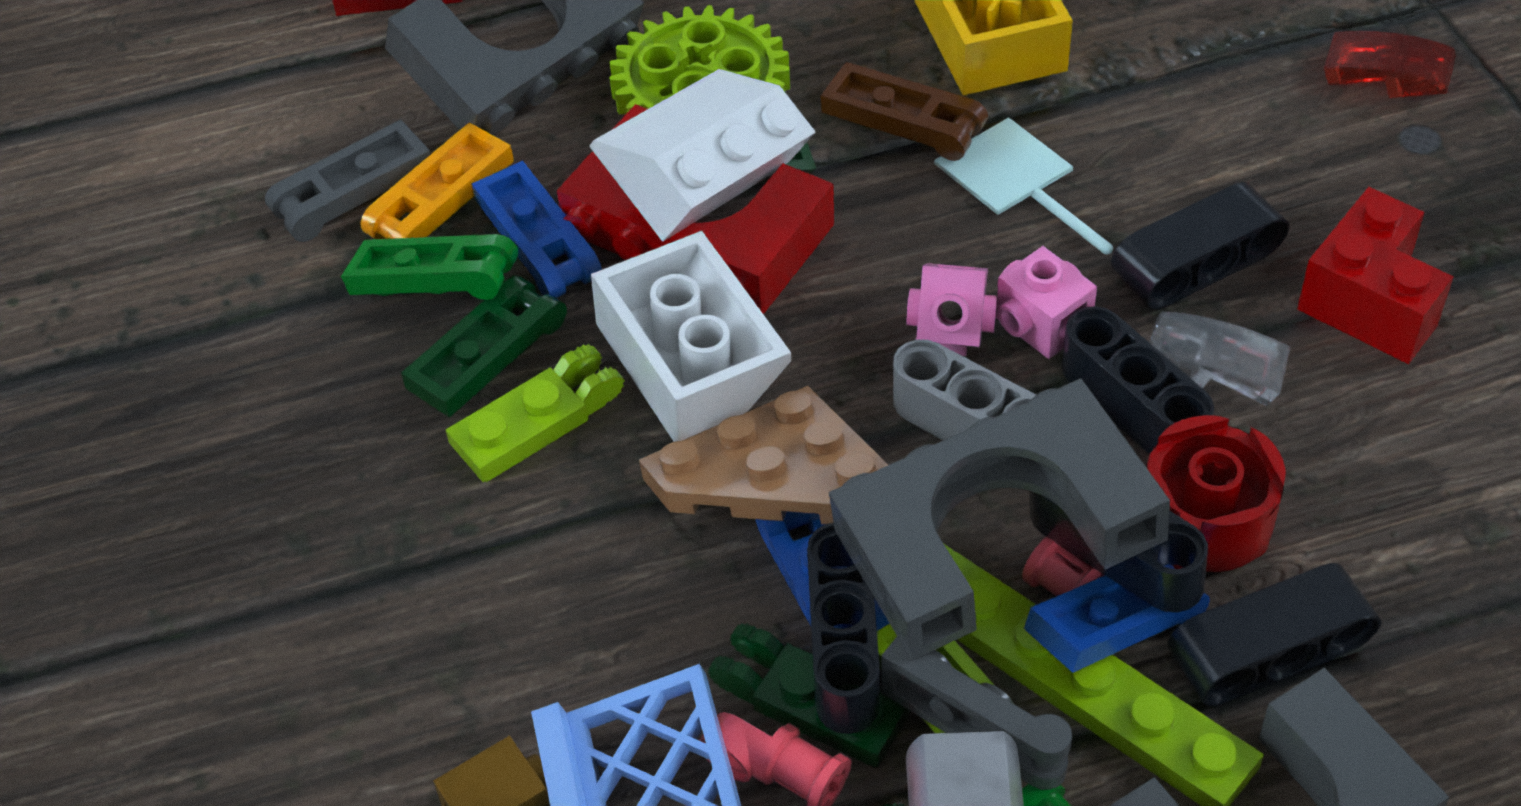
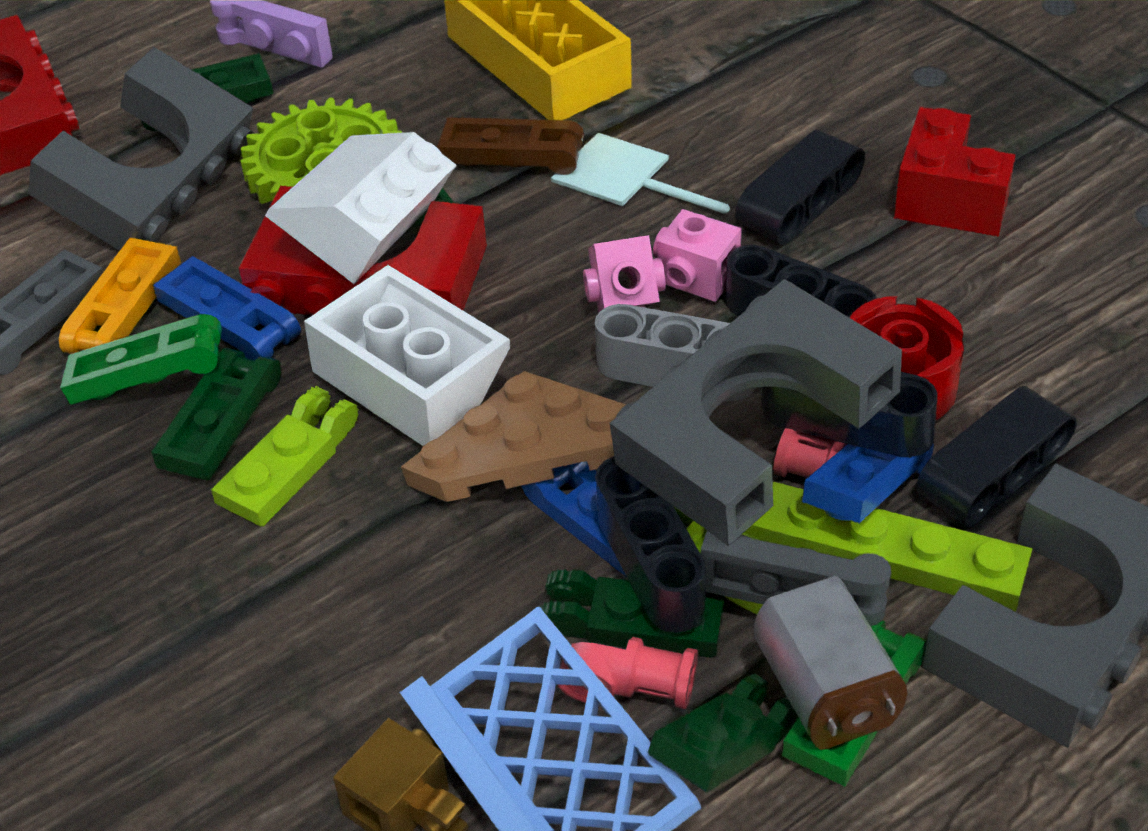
camera: 20 degrees left, 5 degrees down
(1222, 352) = (859, 259): clear slope -> none
(1403, 61) = (898, 21): clear red slope -> none

